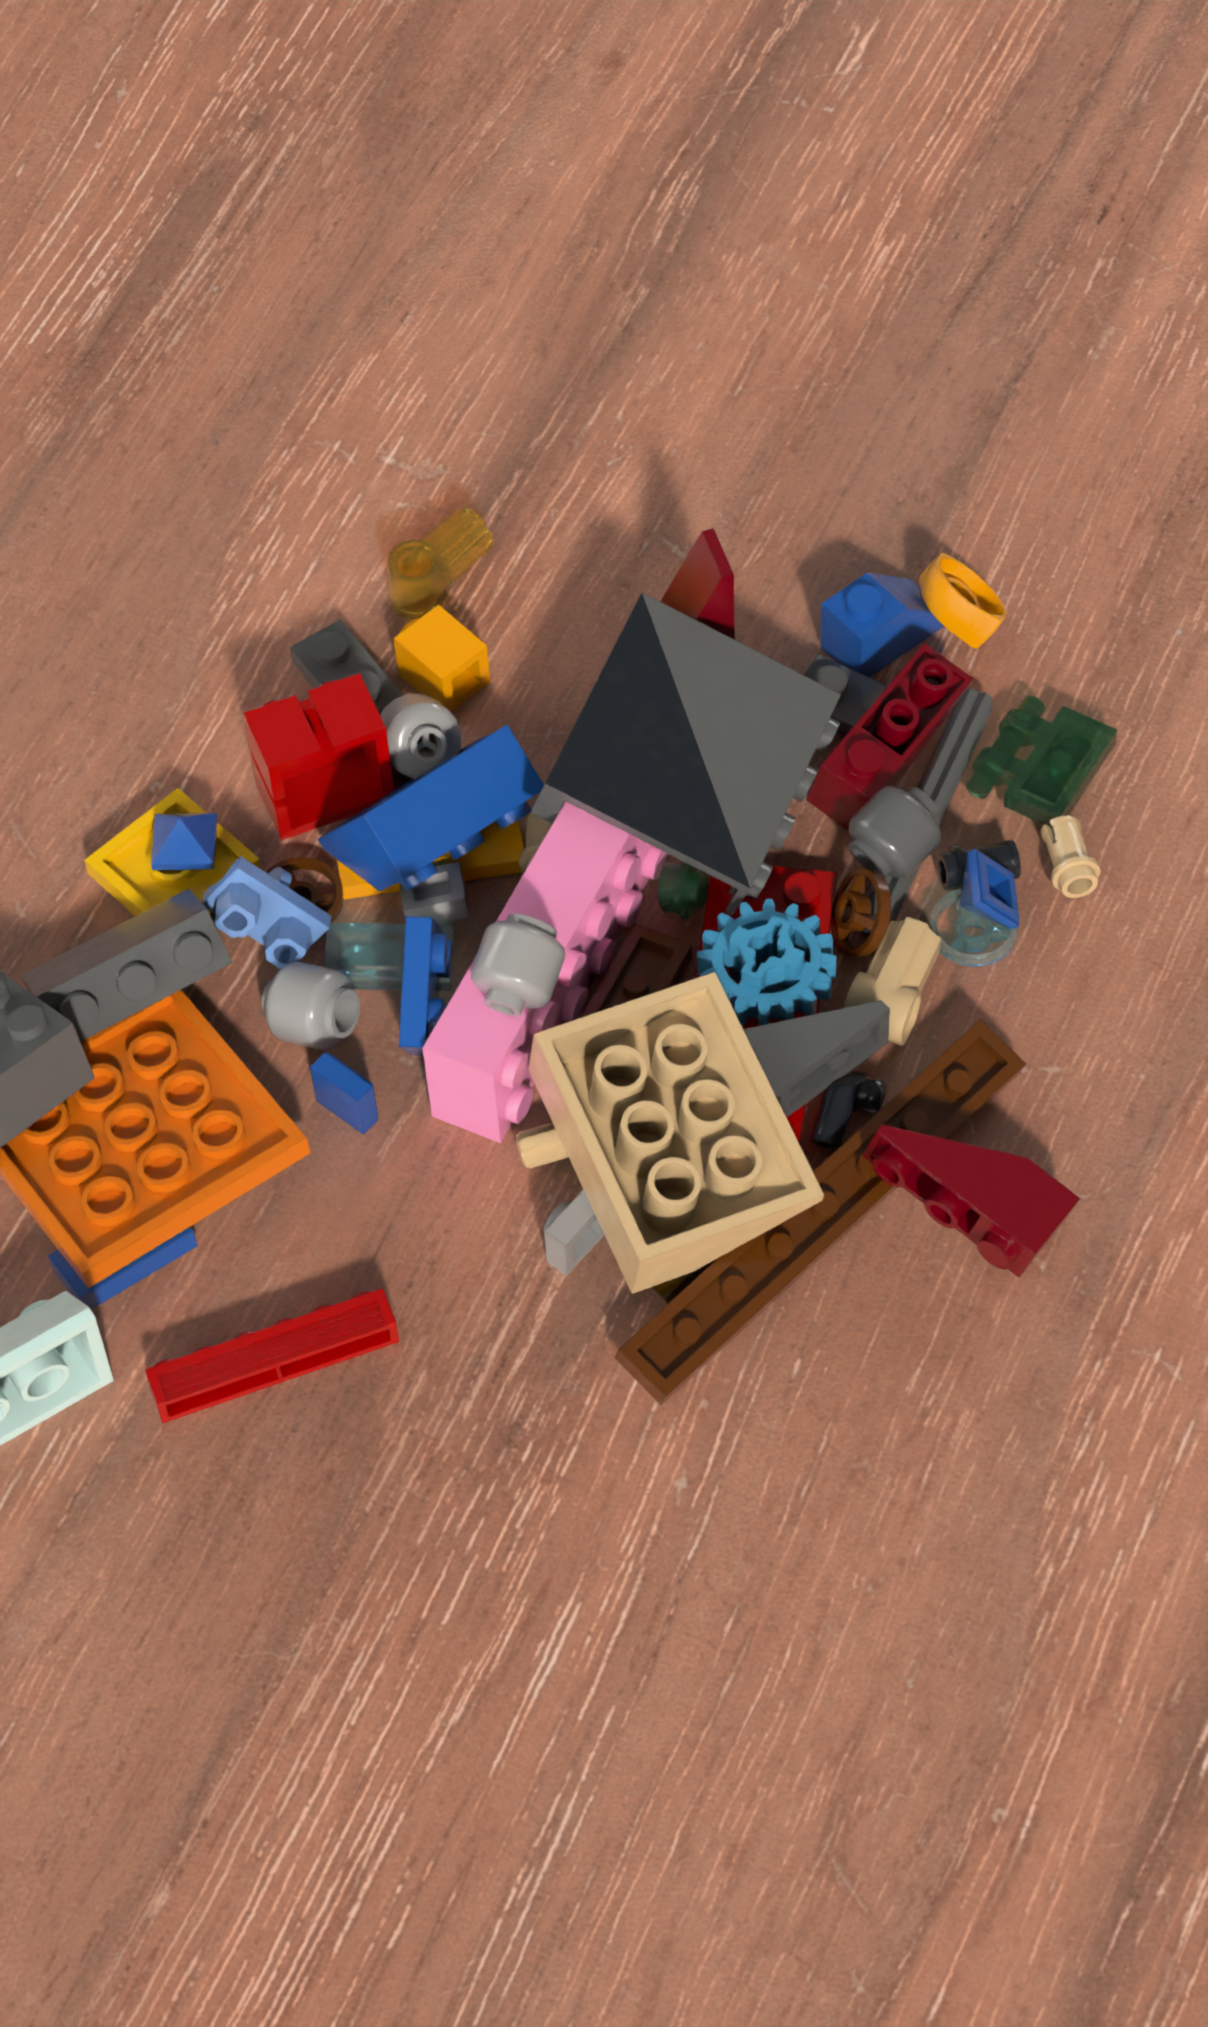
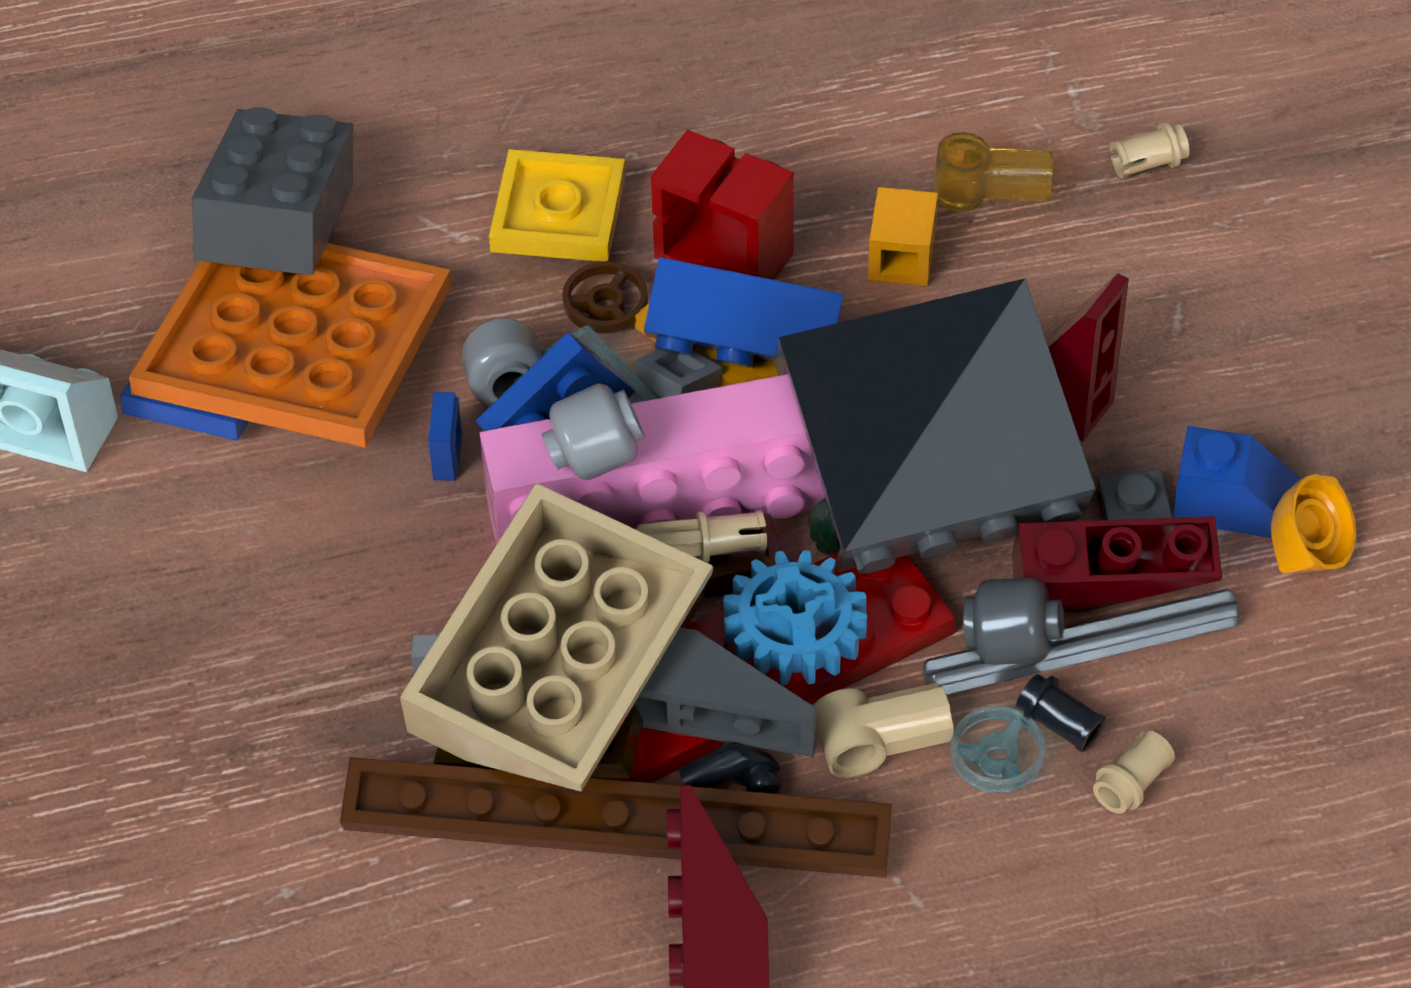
camera: 50 degrees right, 5 degrees down
(131, 965) = (426, 231): dark grey brick -> none
(184, 841) = (576, 192): blue slope -> none
(266, 910) = (554, 275): medium blue hips -> none
(272, 1355) = (178, 548): red piece -> none
(337, 655) = (836, 198): dark grey plate -> none
(423, 718) = (811, 258): light grey head -> none
(514, 439) = (1150, 150): none -> tan pin
(633, 972) = (710, 535): none -> tan axle
(853, 912) = (921, 653): reddish brown piece -> none
(989, 890) = (1030, 730): blue slope -> none
(1056, 771) = (1213, 705): clear green plate -> none

